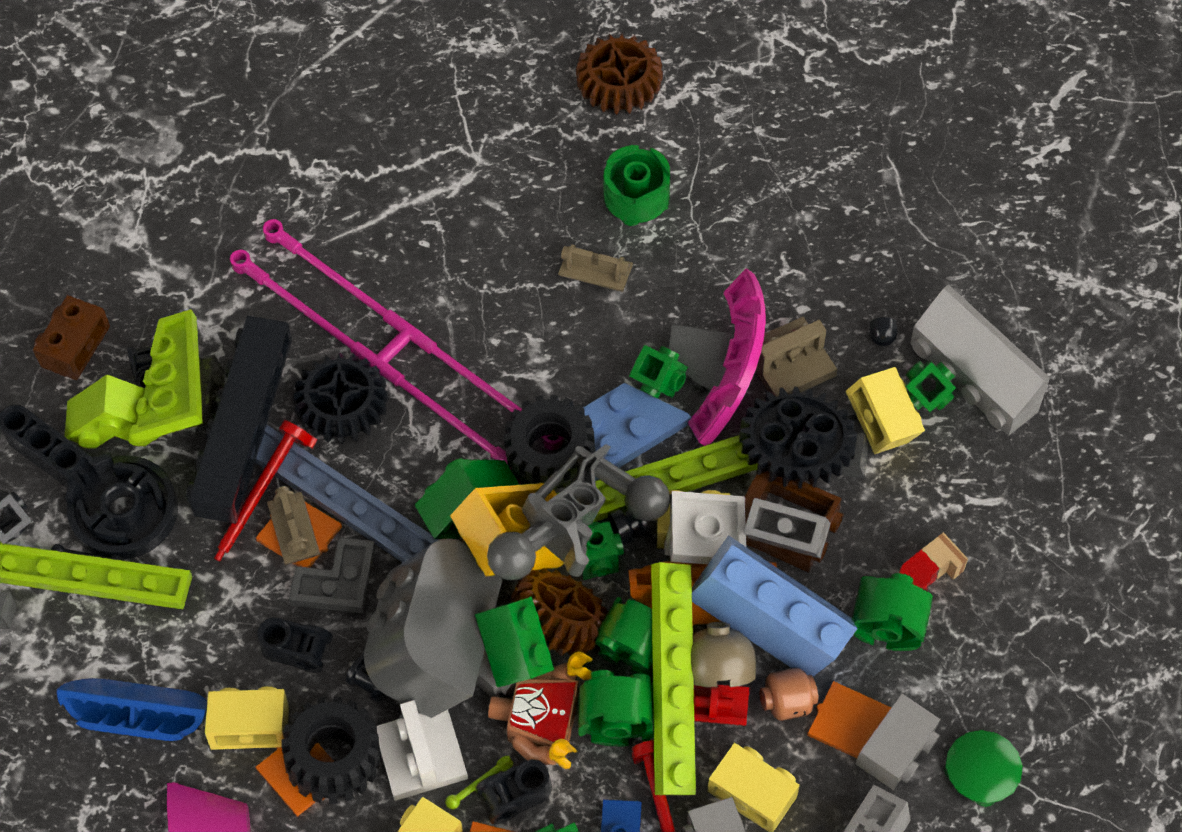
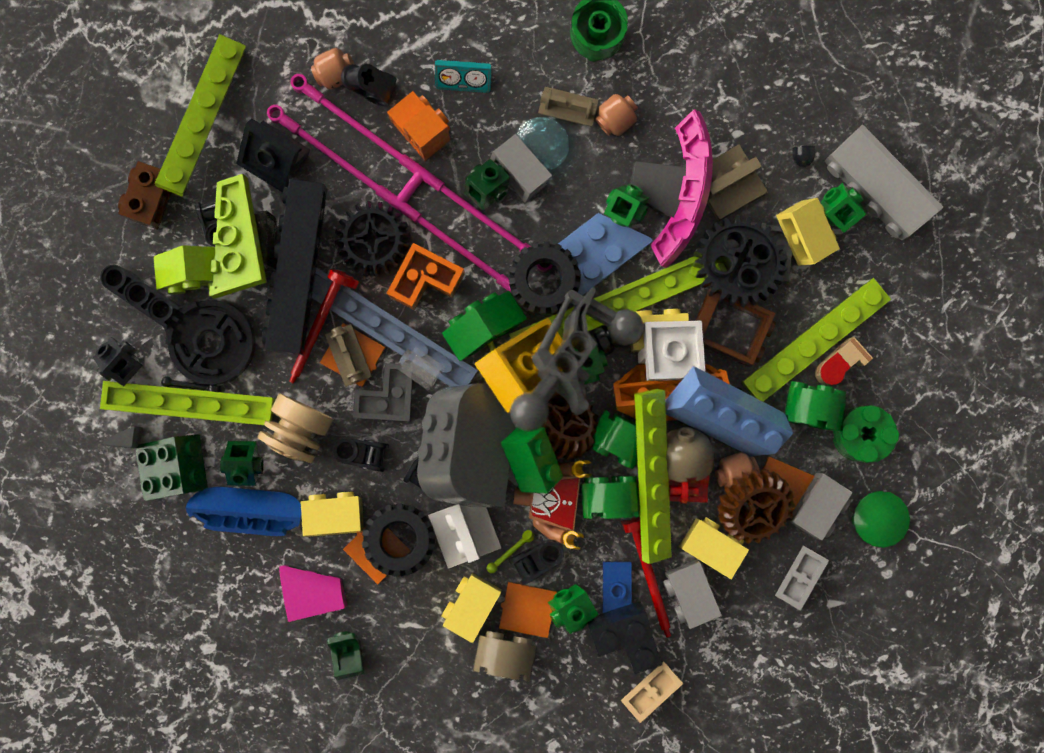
camera: 10 degrees left, 25 degrees up
(46, 646) = (171, 467): none -> dark green bracket
(138, 645) = (241, 463): none -> dark green brick
(149, 255) = (200, 116): none -> lime plate
(214, 602) = (295, 429): none -> tan wheel
(226, 295) = (270, 153): none -> black bracket
(315, 214) = (329, 66): none -> nougat head
(361, 230) = (369, 83): none -> black piece
(384, 539) = (420, 367): none -> clear brick
(396, 432) = (421, 270): none -> orange brick
(414, 276) = (420, 124): none -> orange brick
(470, 229) = (463, 76): none -> slope
(487, 341) = (487, 184): none -> dark green brick
(530, 329) = (523, 167): none -> light grey hinge
(559, 307) = (545, 140): none -> clear light blue dish
(653, 277) = (616, 114): none -> nougat head
(787, 528) = (737, 350): light grey brick -> none
(824, 720) = (768, 493): none -> reddish brown gear
(901, 540) = (816, 340): none -> lime plate
(975, 658) = (881, 434): none -> green brick

